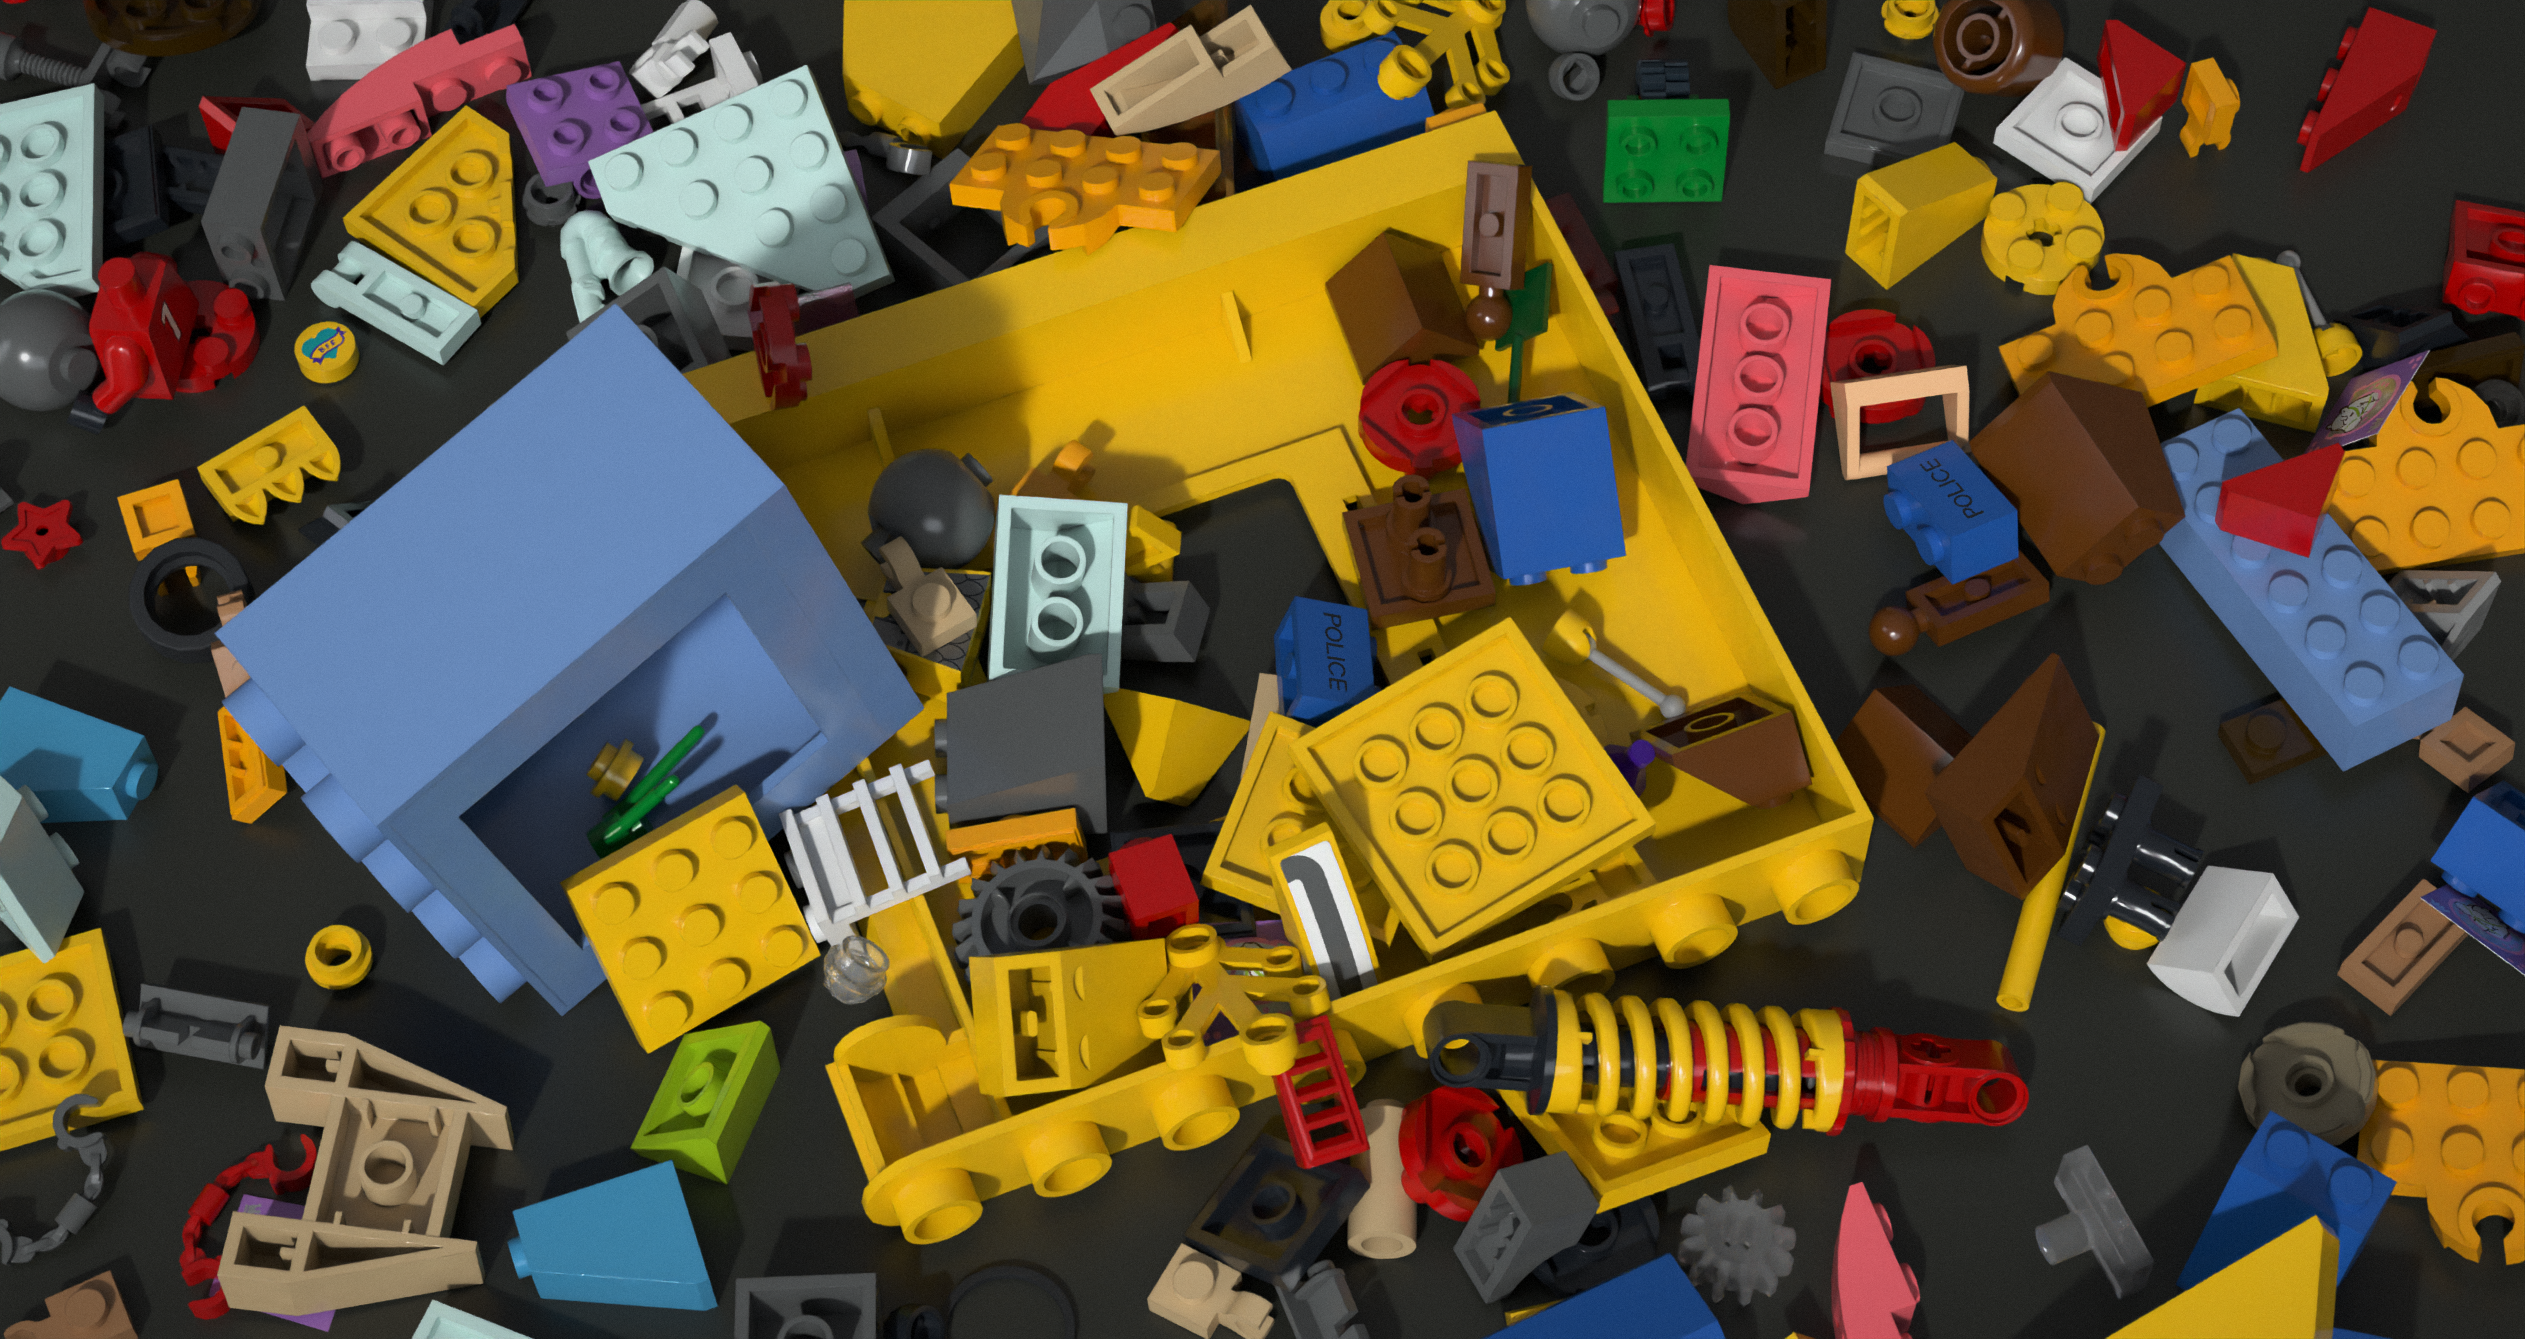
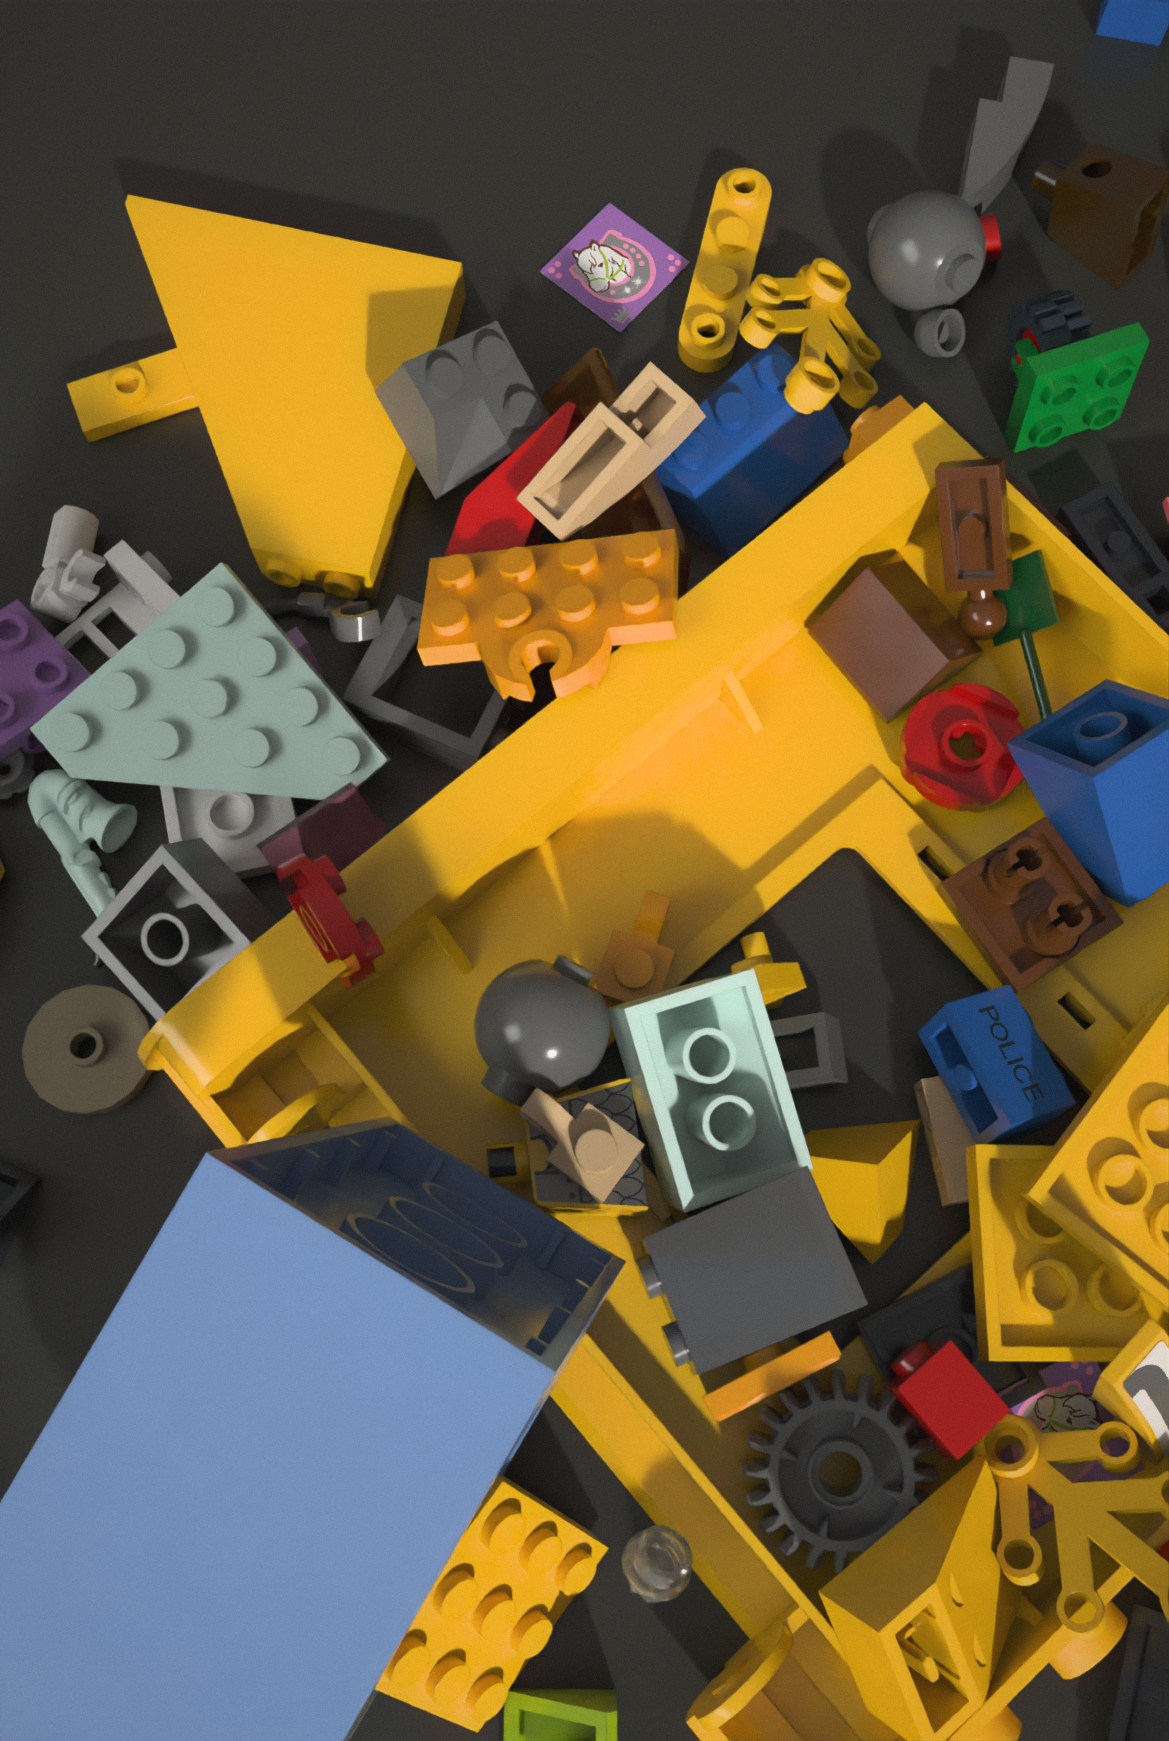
camera: 20 degrees left, 15 degrees up
(825, 865) = (593, 1477): white plate -> none

